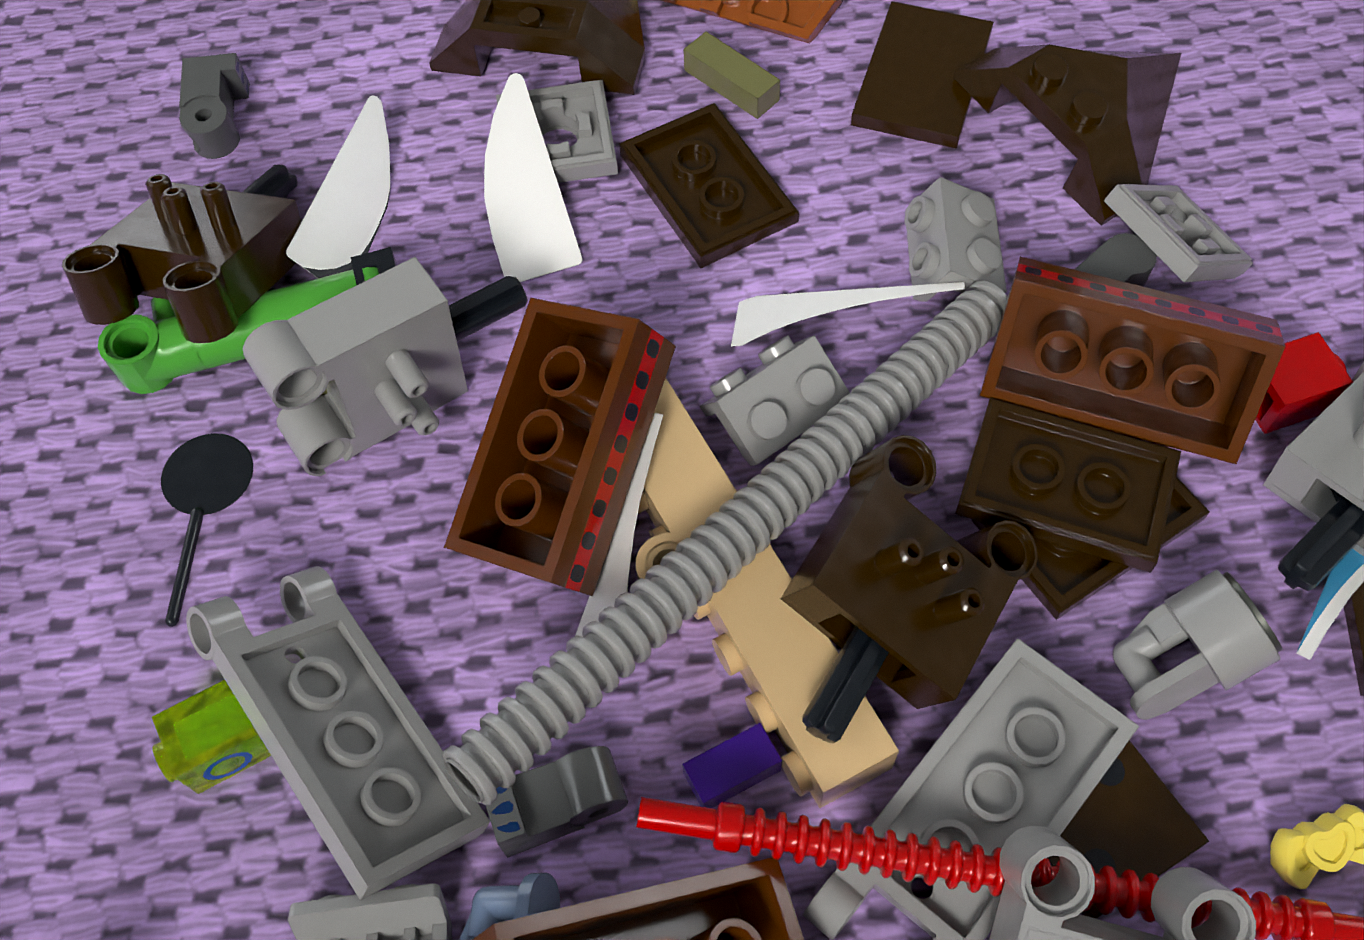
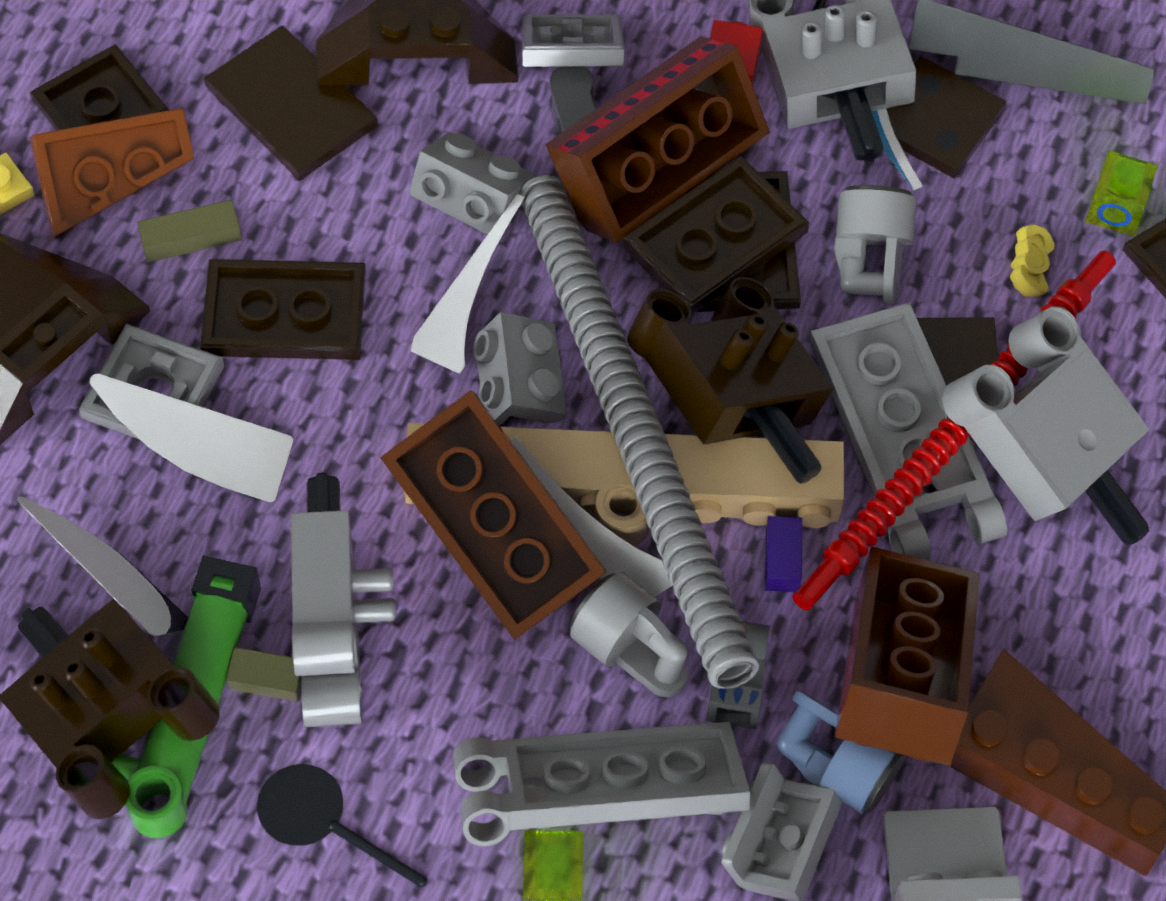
camera: 65 degrees left, 0 degrees up
(523, 632) = (623, 628): none -> light grey piece

